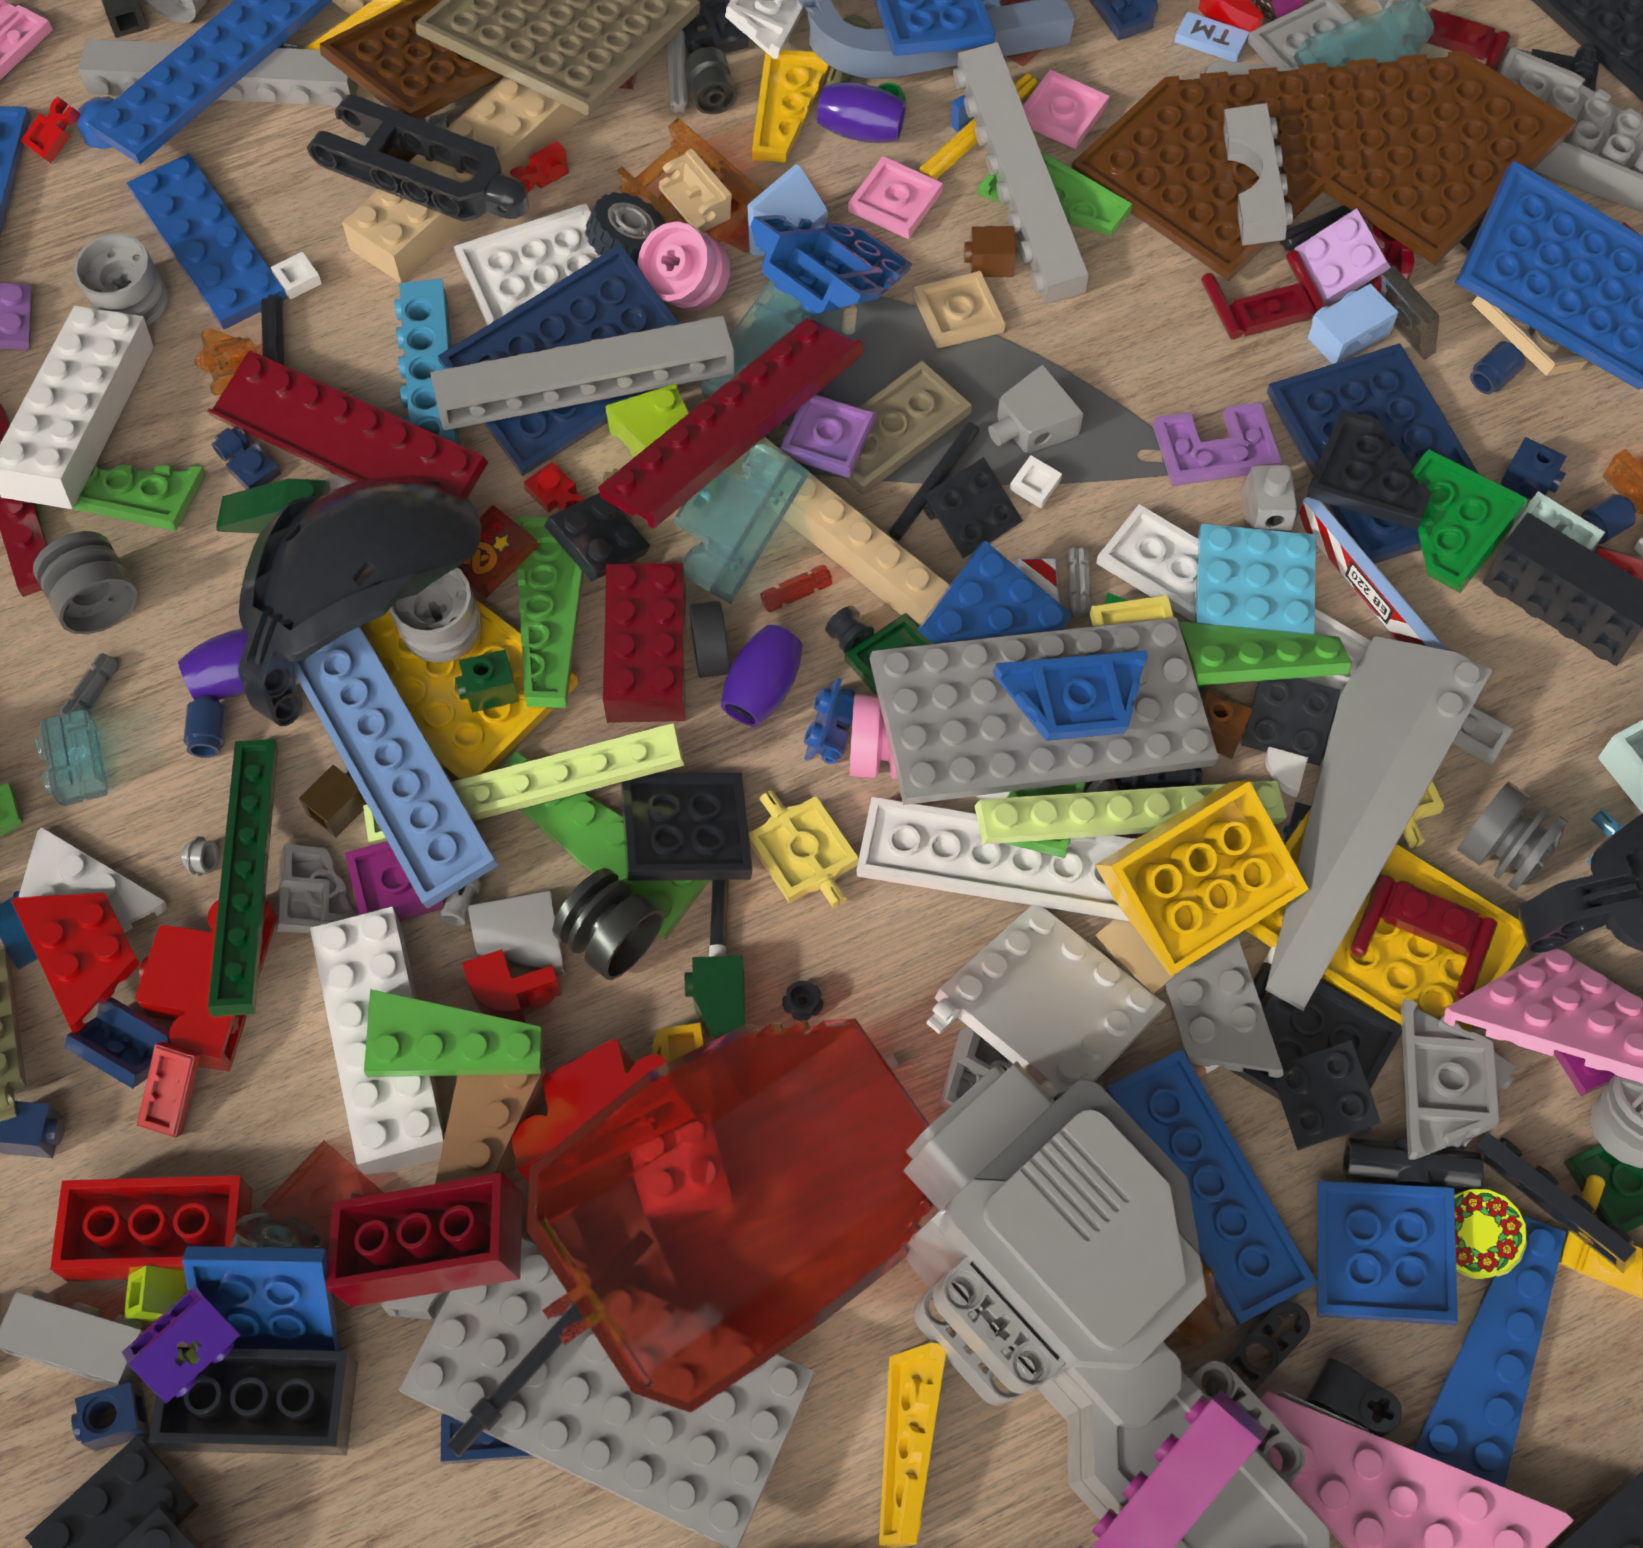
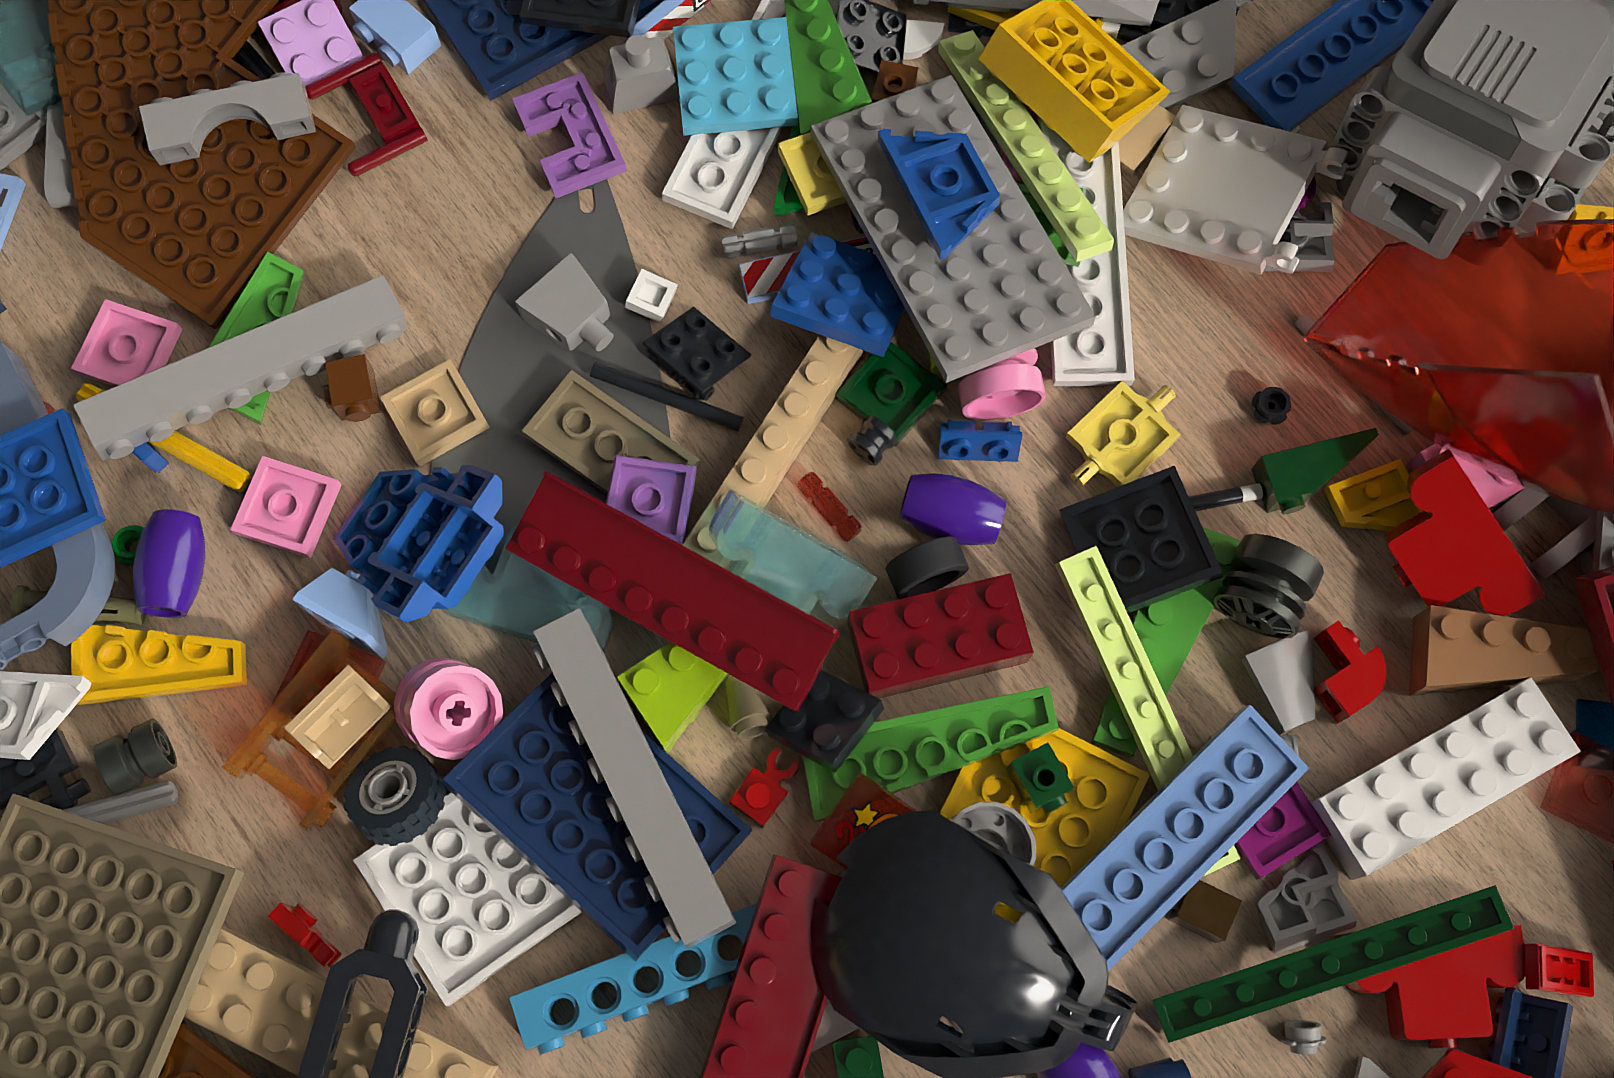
camera: 105 degrees left, 10 degrees up
(442, 1040) = (1452, 709): bright green wing -> none

